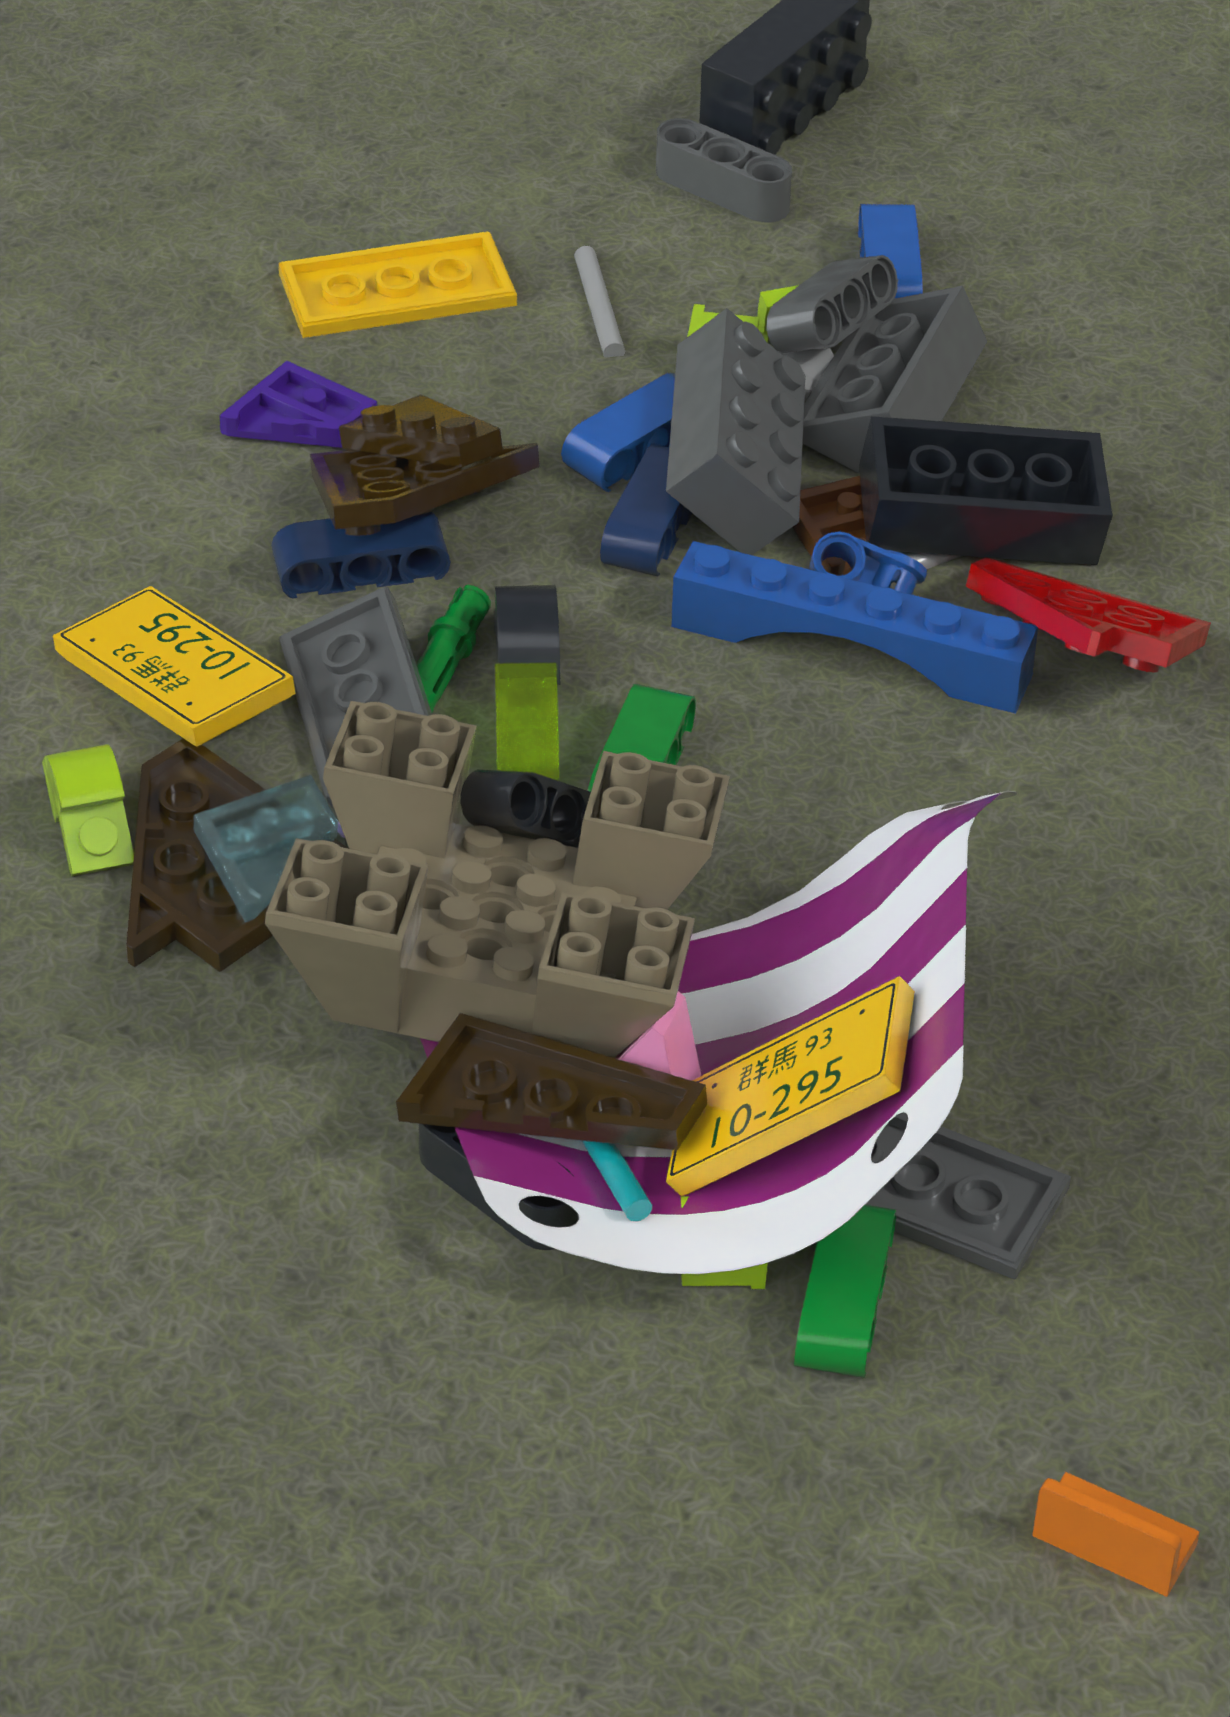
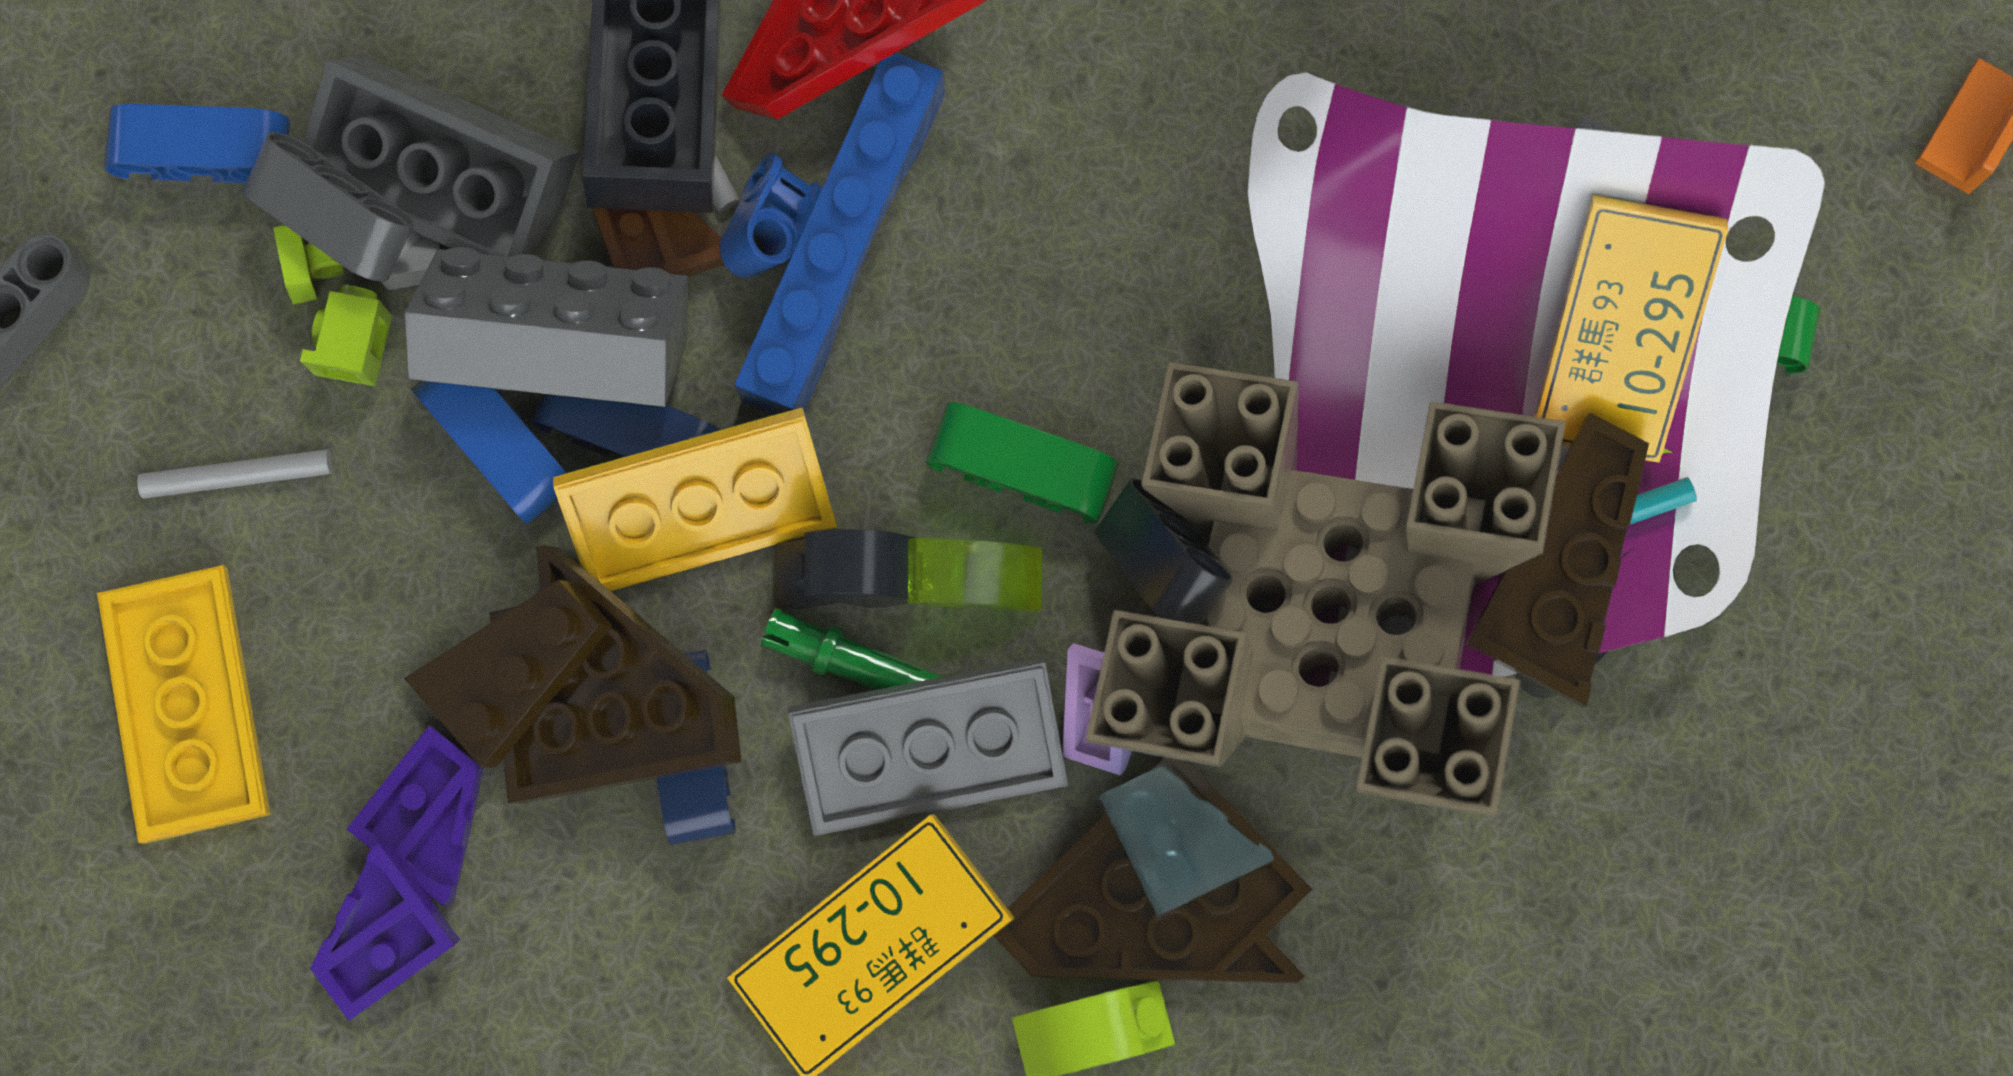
camera: 85 degrees left, 35 degrees up
(195, 383) = (380, 934): none -> dark purple wing
(586, 540) = (696, 501): none -> yellow tile

